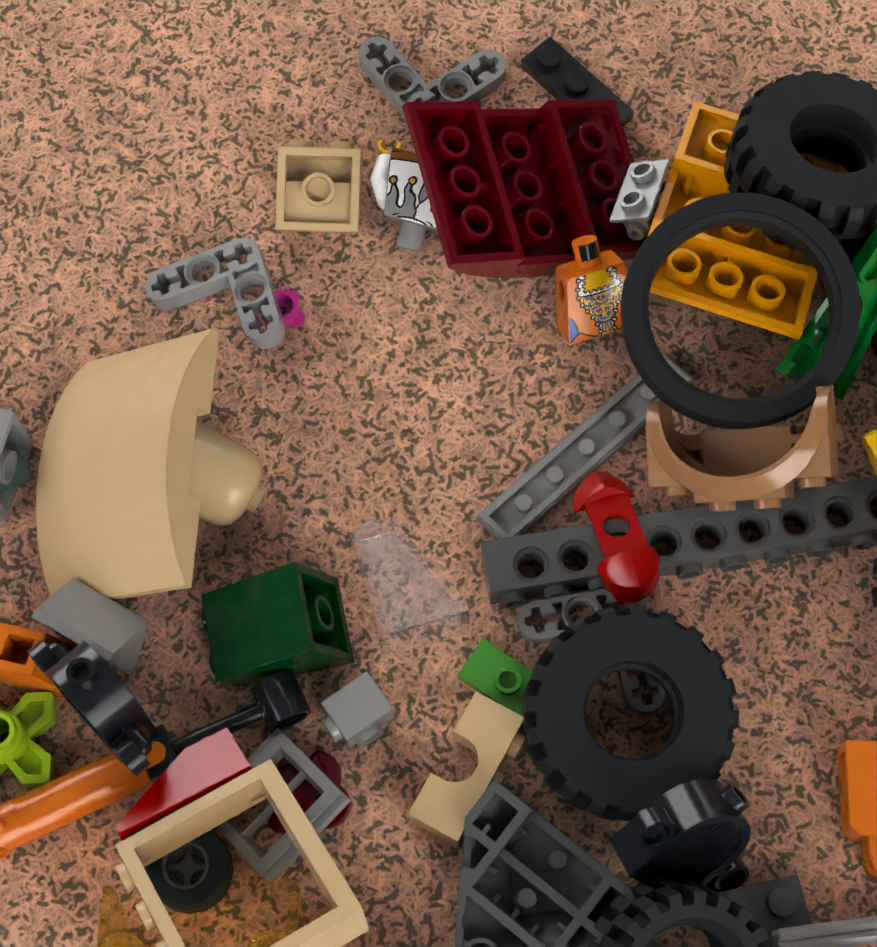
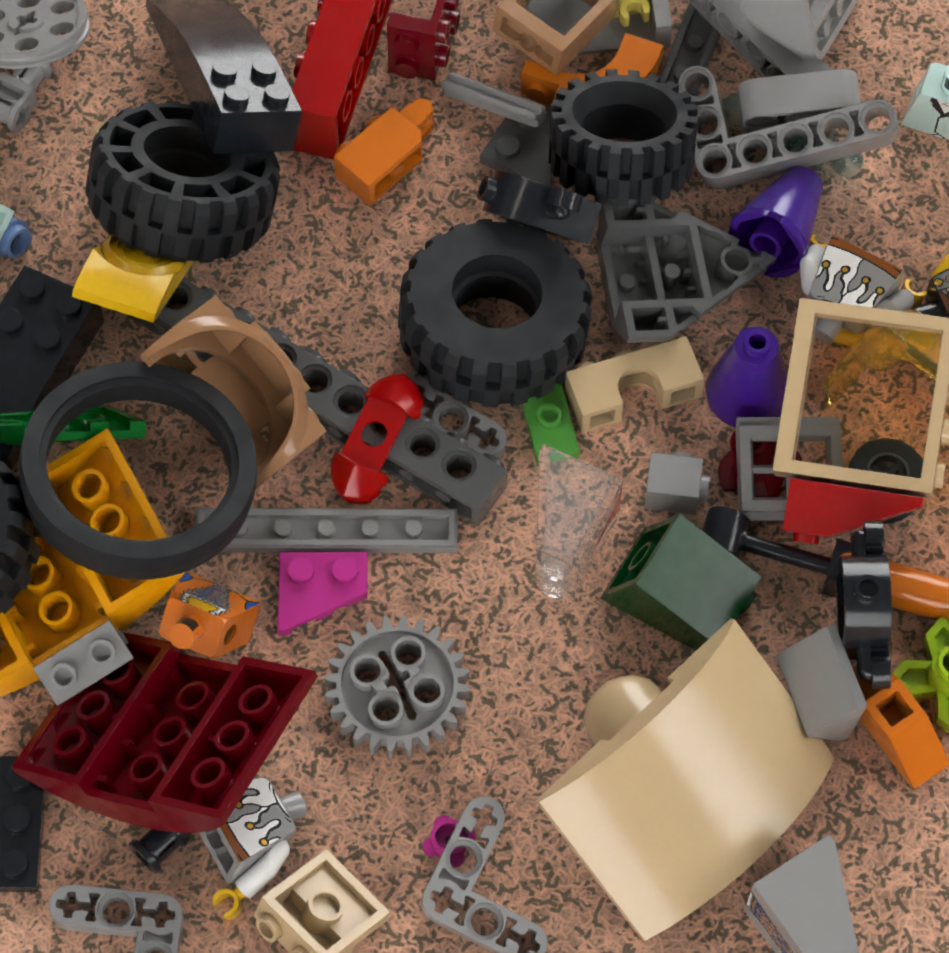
camera: 140 degrees left, 5 degrees down
(389, 872) = (748, 378): none -> dark purple cone
(401, 407) = (360, 701): none -> light grey gear
(549, 403) = (318, 584): none -> dark pink wing

